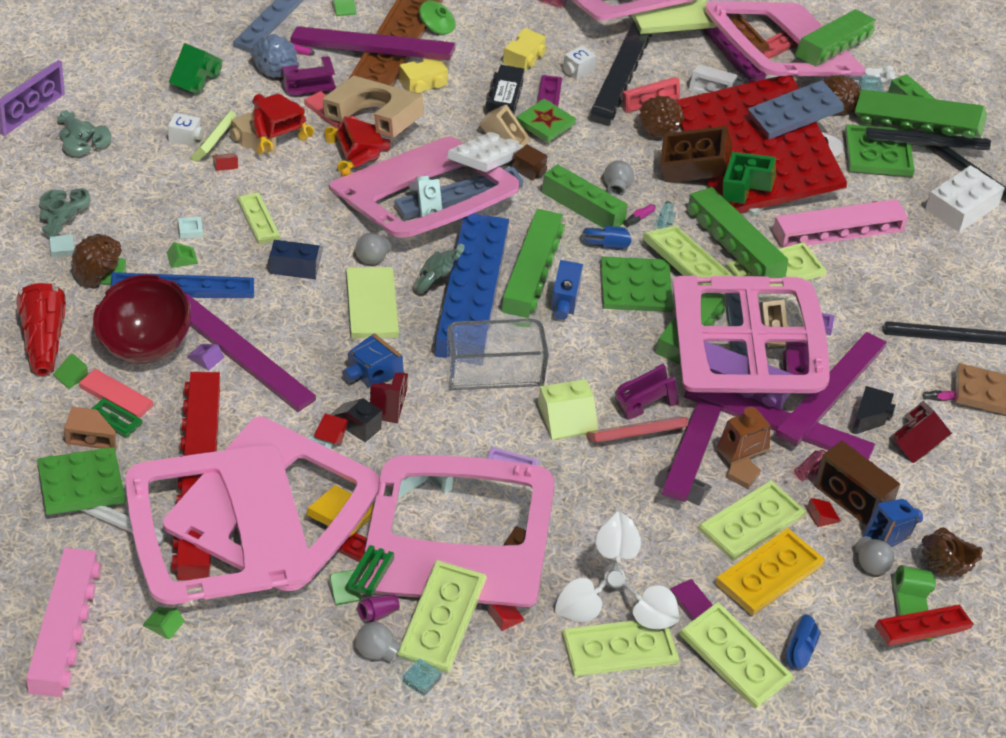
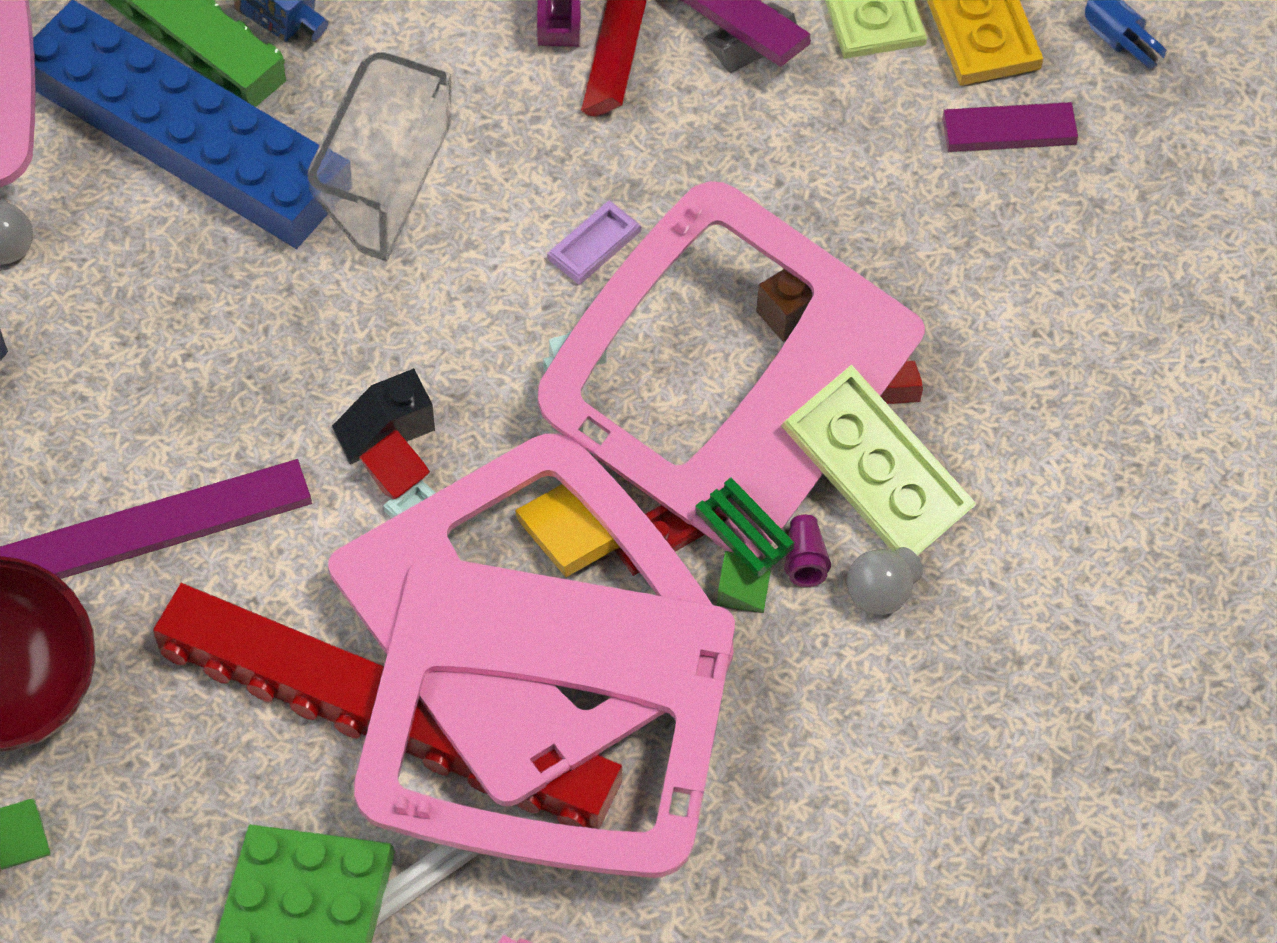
camera: 60 degrees left, 15 degrees up
(89, 429) = (187, 849): nougat slope -> none
(106, 387) = (113, 777): coral tile -> none
(121, 427) = (178, 816): green tile -> none
(164, 621) = (682, 890): bright green slope -> none
(206, 355) = (102, 593): medium lavender slope -> none
(372, 302) = (120, 287): yellowish green tile -> none
(373, 362) = (275, 340): blue torso -> none
(390, 397) = (369, 343): dark red panel -> none
(422, 677) = (972, 546): clear light blue plate -> none
(435, 266) = (119, 151): sand green animal -> none
(568, 409) = (531, 112): yellowish green slope -> none
(618, 539) = (902, 151): white plant -> none
(618, 647) = (1022, 259): yellowish green tile -> none
(736, 655) = (1110, 120): yellowish green tile -> none

